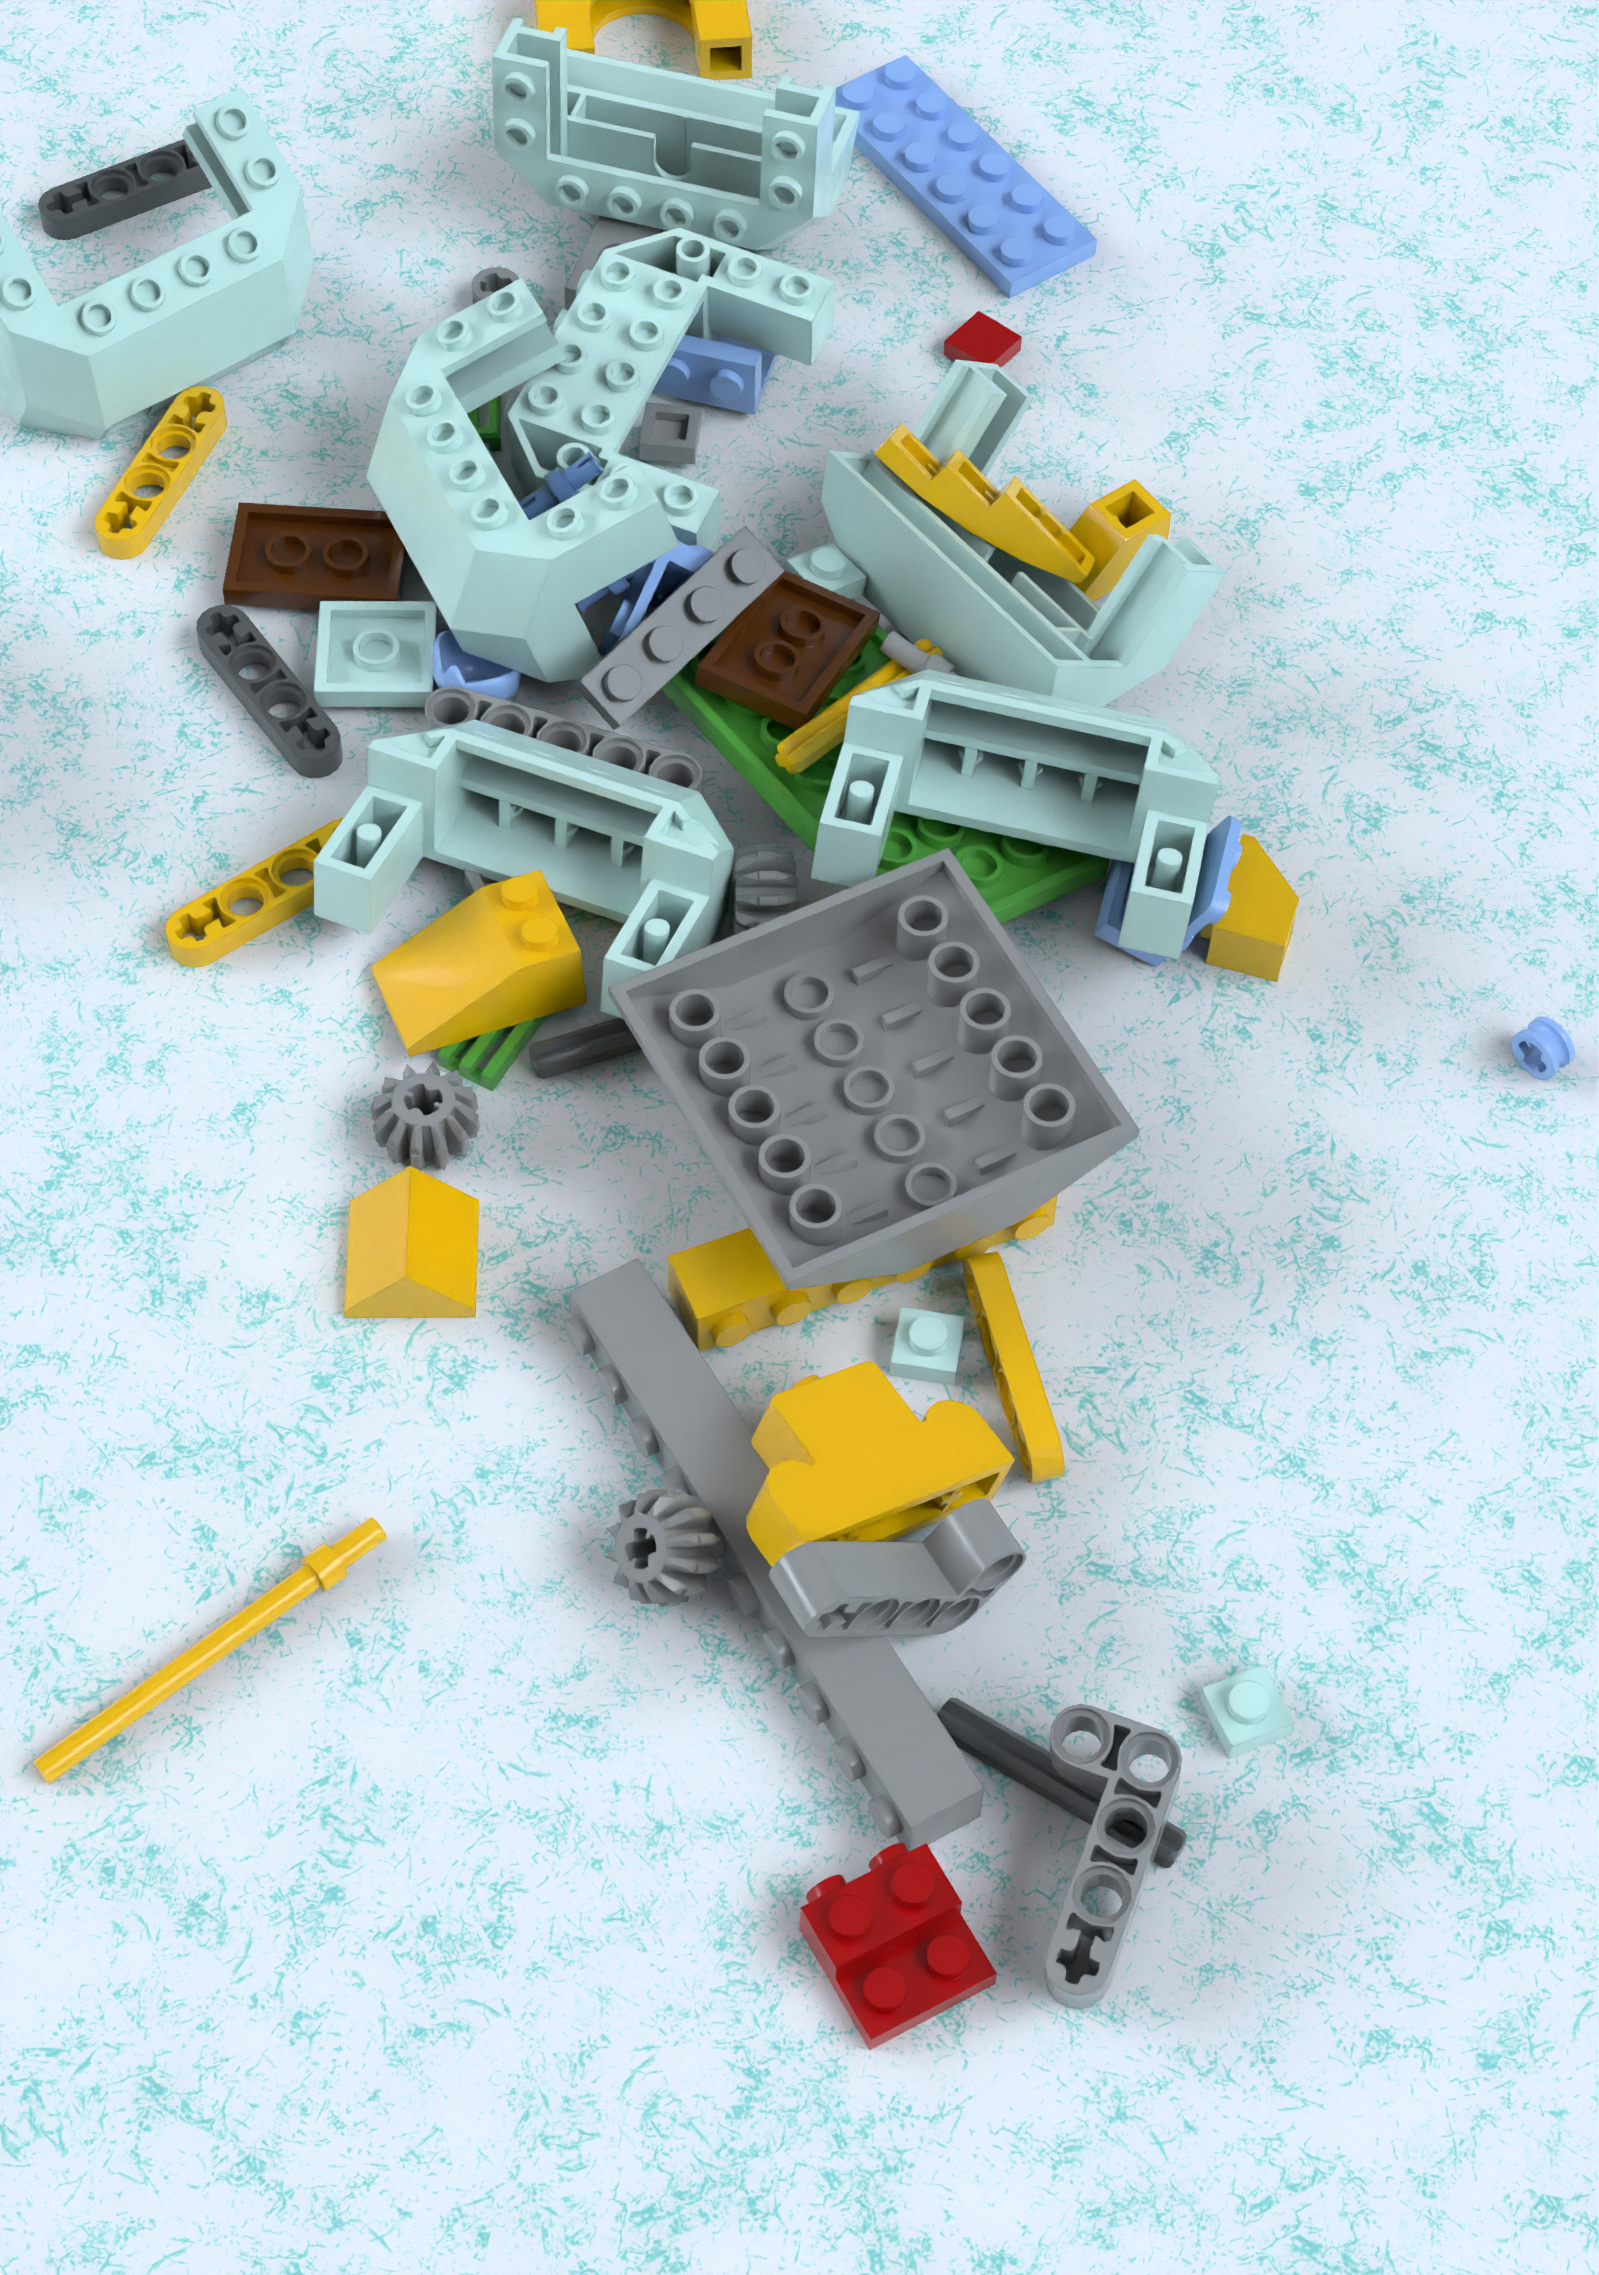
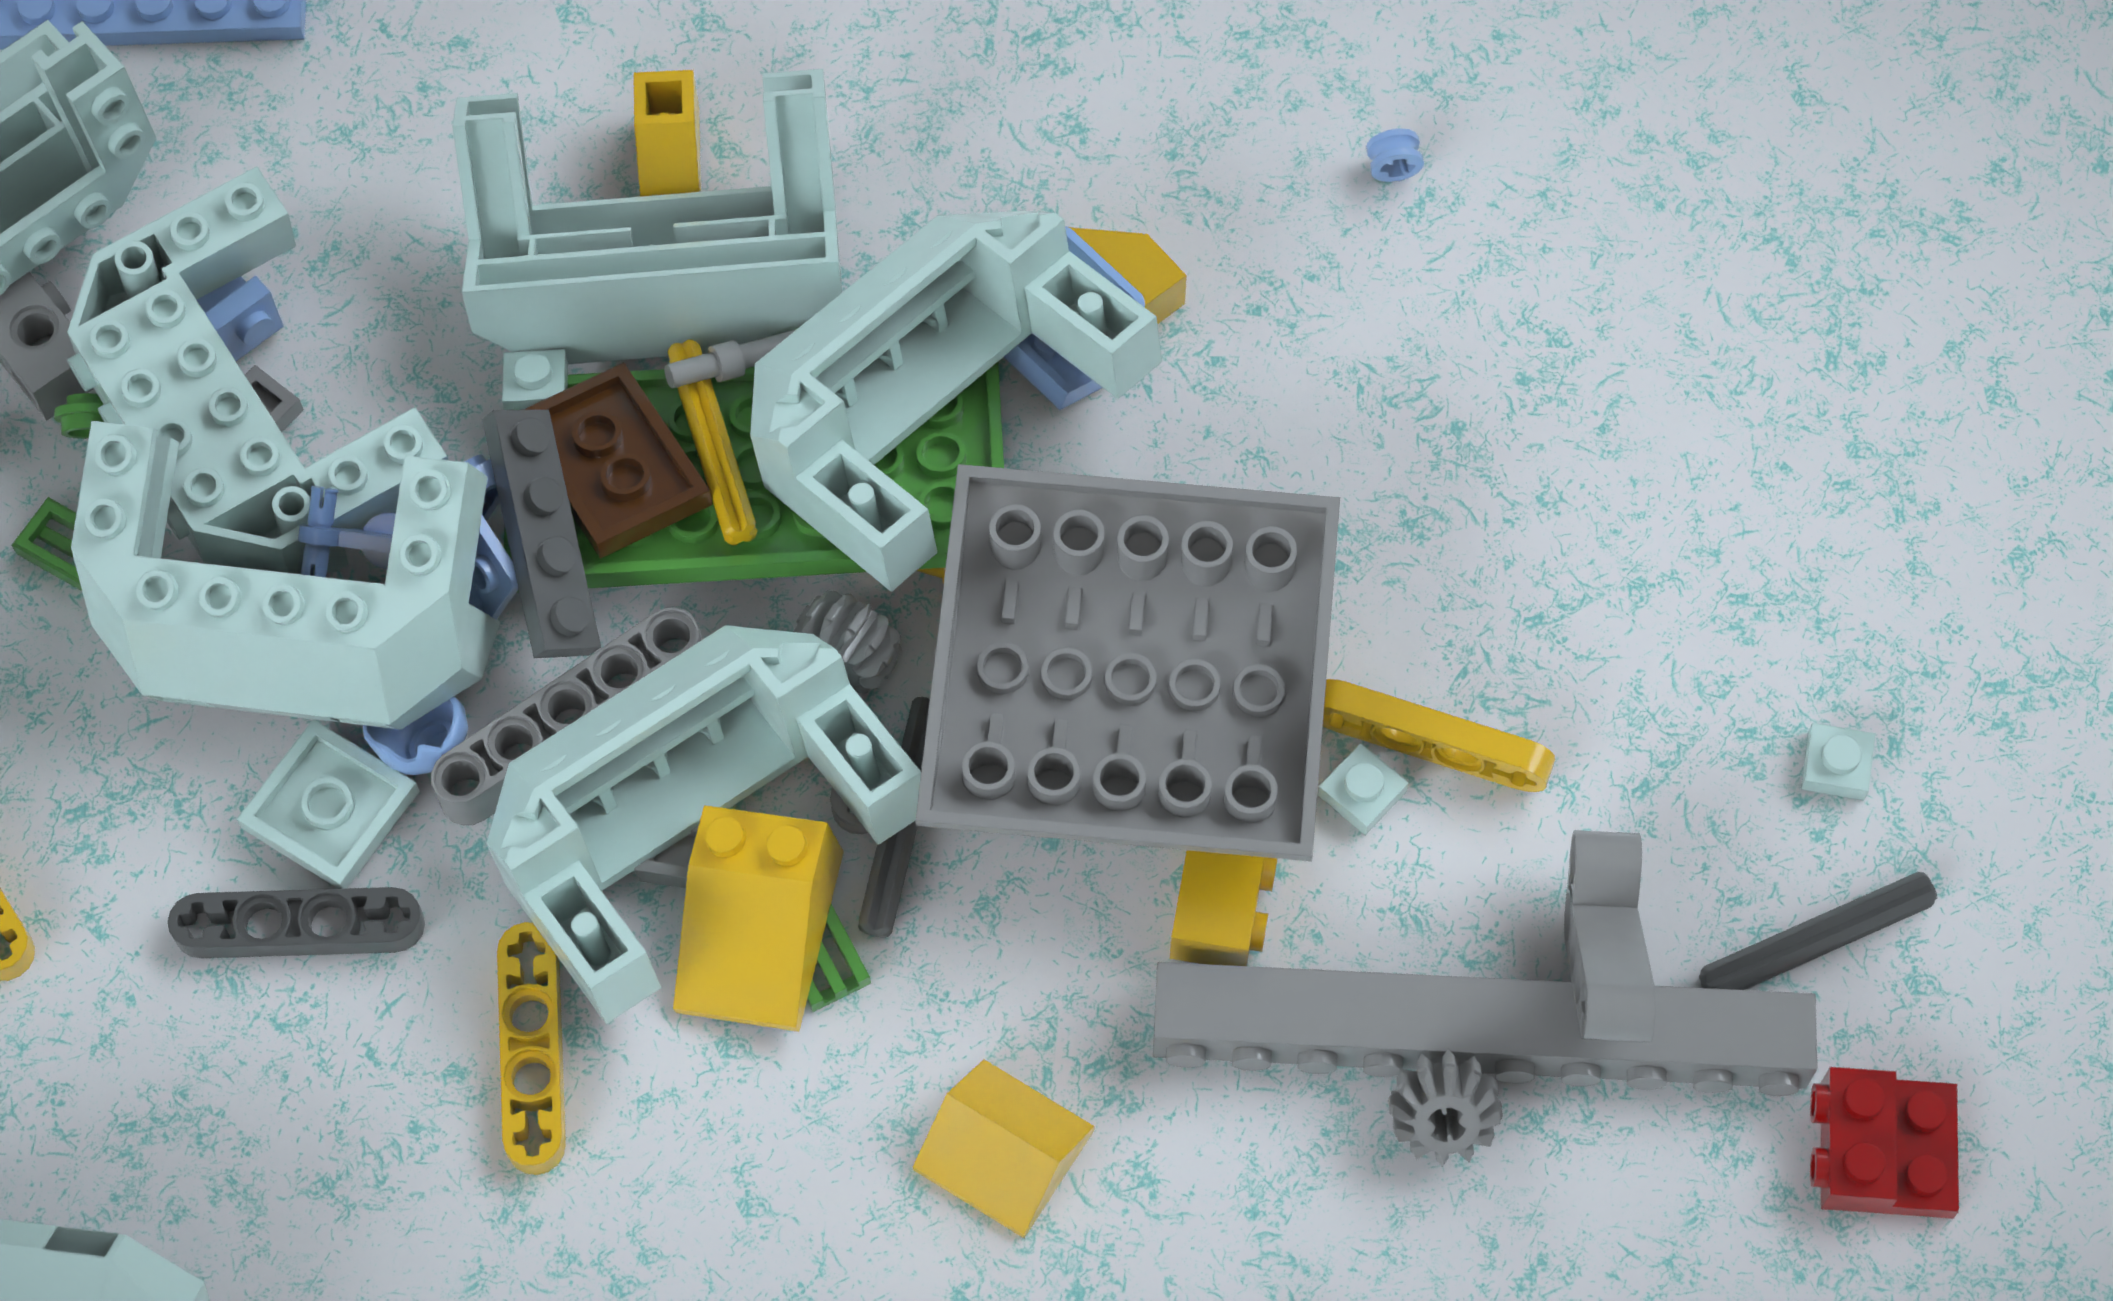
camera: 55 degrees left, 10 degrees up
(312, 555) = (173, 796): reddish brown plate -> none
(425, 1117) = (896, 1067): light grey gear -> none
(861, 1464) = (1477, 911): yellow brick -> none
(983, 341) = (349, 94): red tile -> none
(1003, 517) = (603, 202): yellow slope -> none
(1101, 1861) = (1919, 950): light grey beam -> none

